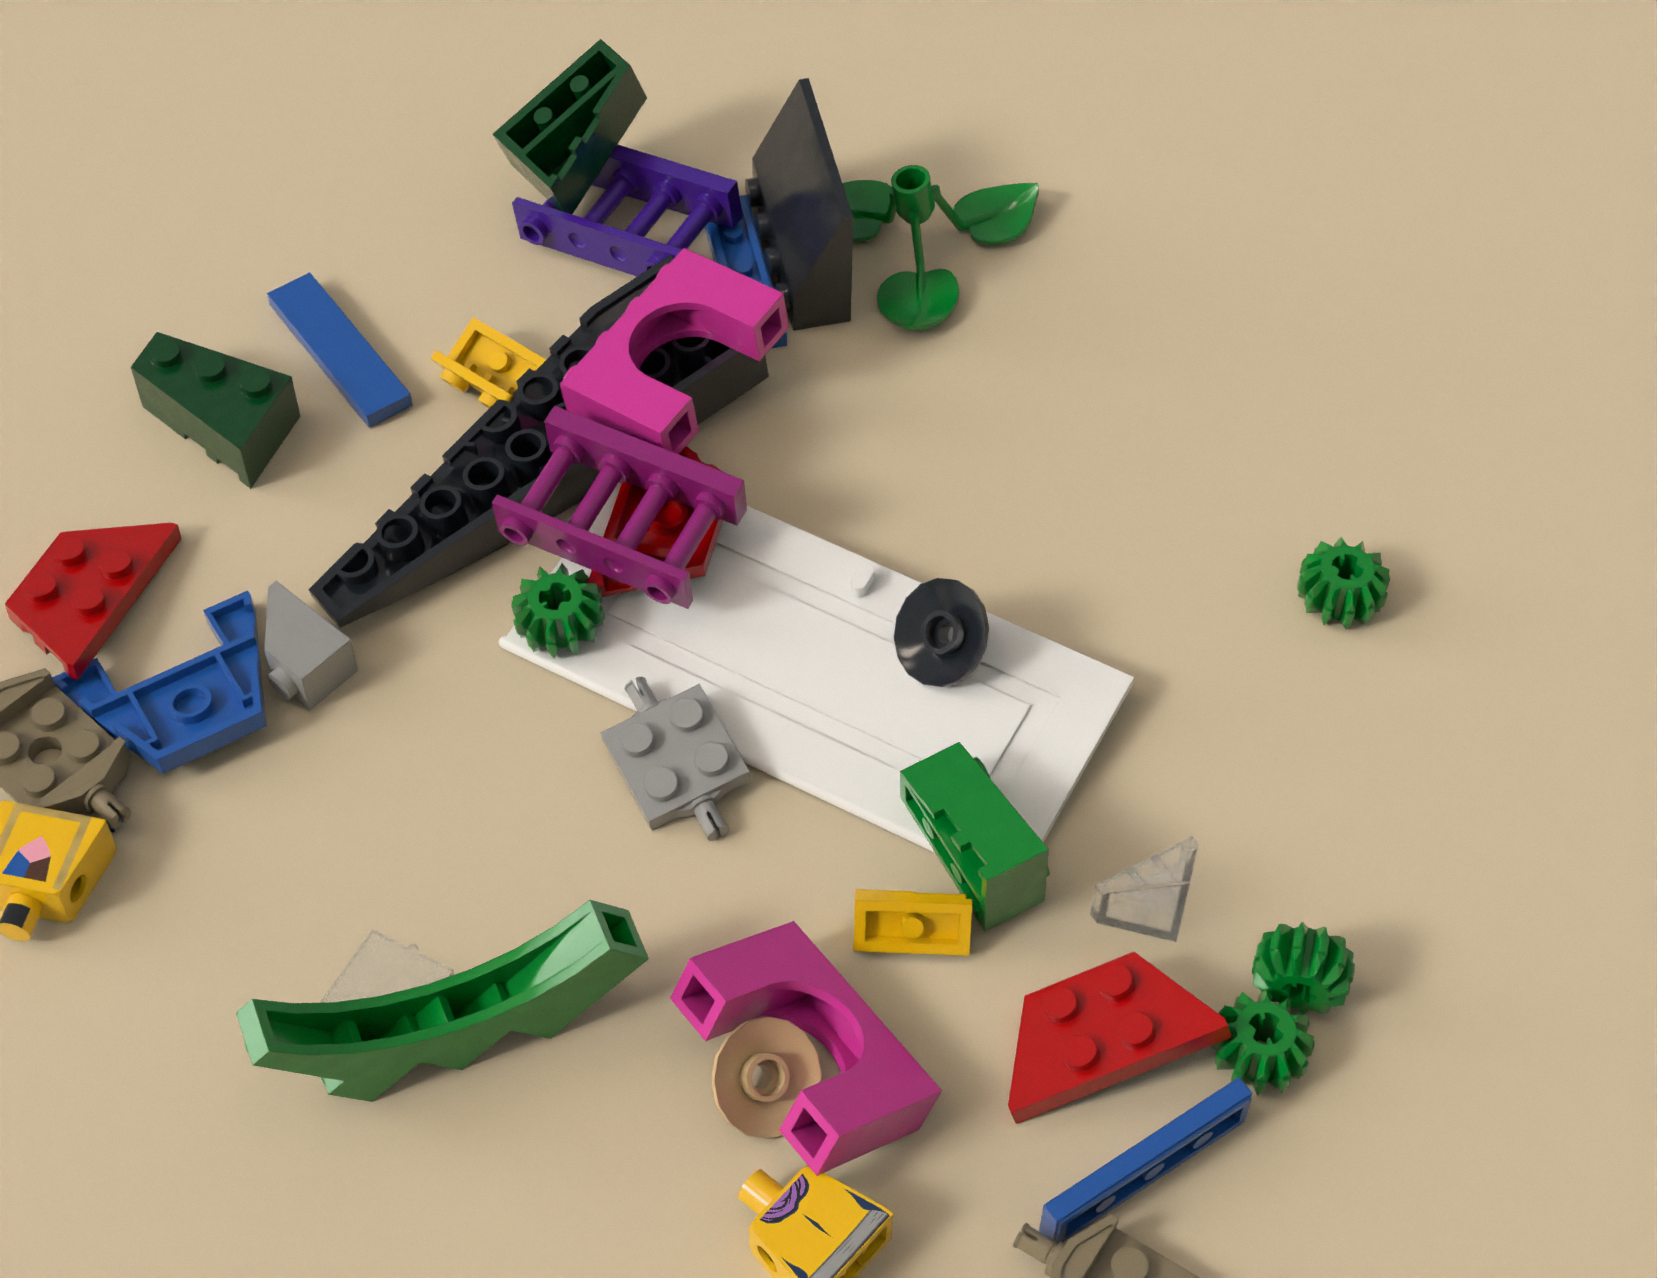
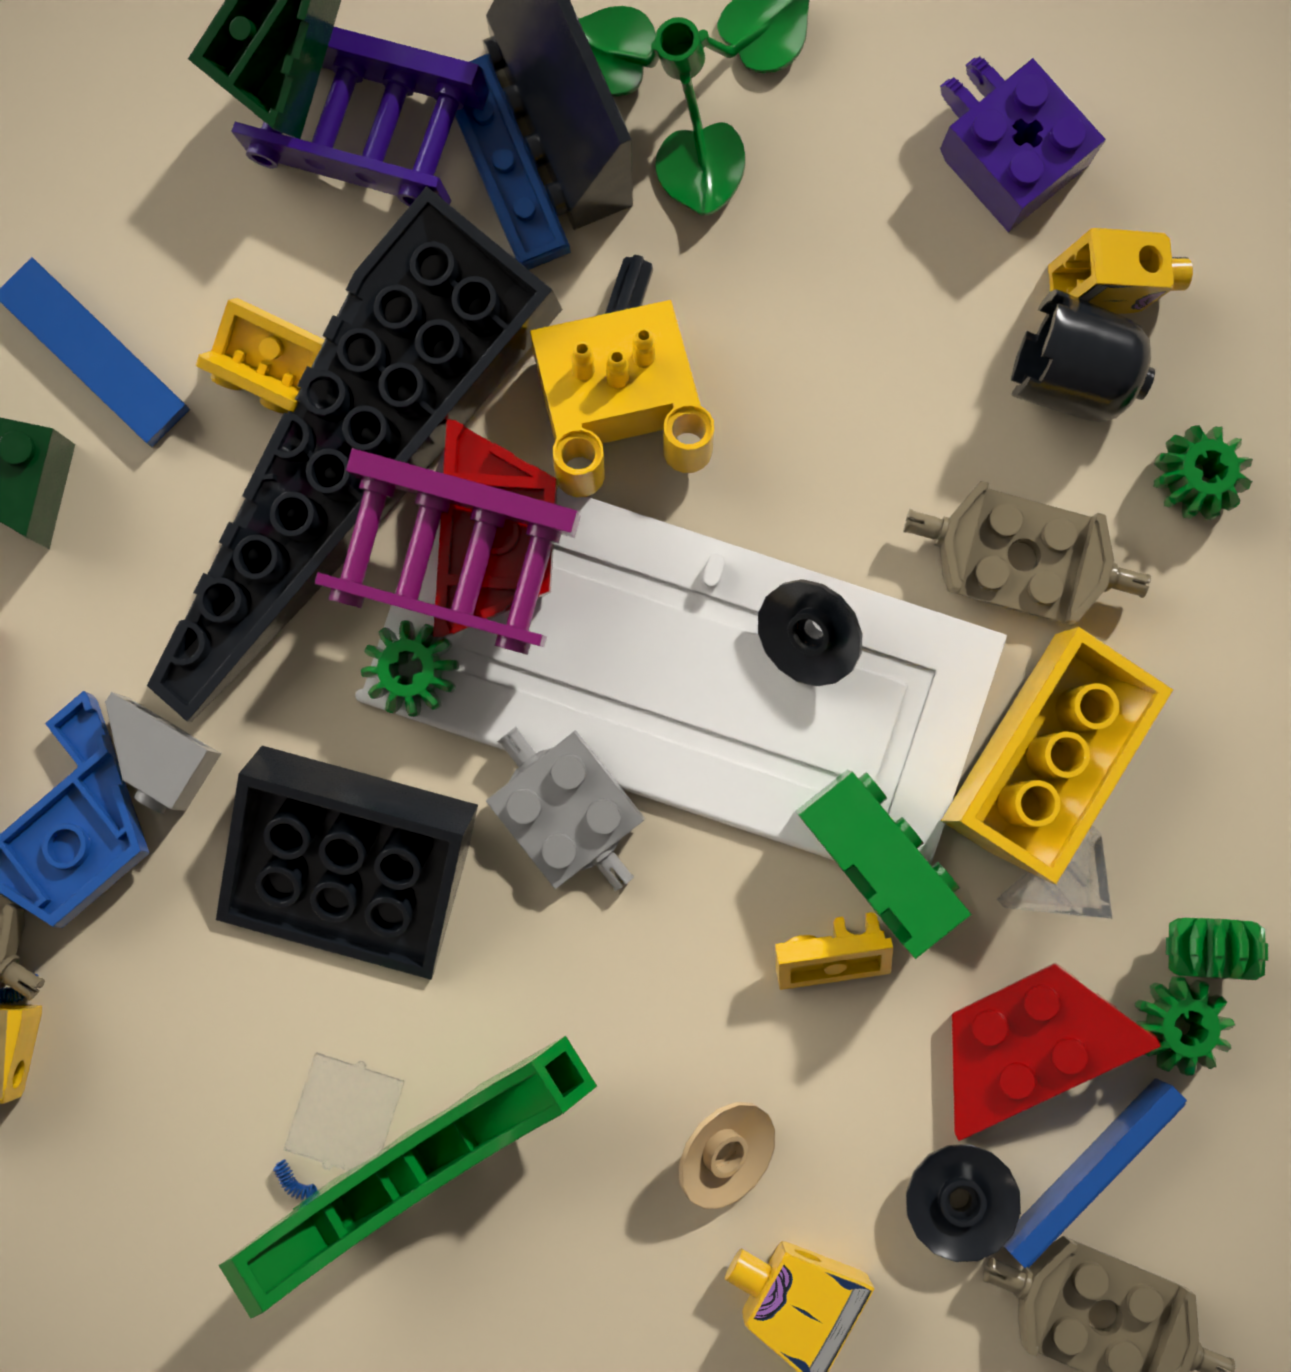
camera: 10 degrees left, 30 degrees up
(449, 766) = (344, 861): none -> black slope
(685, 300) = (460, 263): dark pink arch -> none
(788, 978) = (836, 1147): dark pink arch -> none
(807, 428) = (619, 381): none -> yellow piece
(1007, 1142) = (983, 1222): none -> black dish
(1127, 599) = (1069, 548): none -> dark tan plate
(1160, 771) = (1057, 754): none -> yellow slope
(1205, 315) = (1017, 111): none -> dark purple hinge
(1239, 472) = (1083, 360): none -> black cylinder
(1279, 416) = (1120, 269): none -> yellow torso

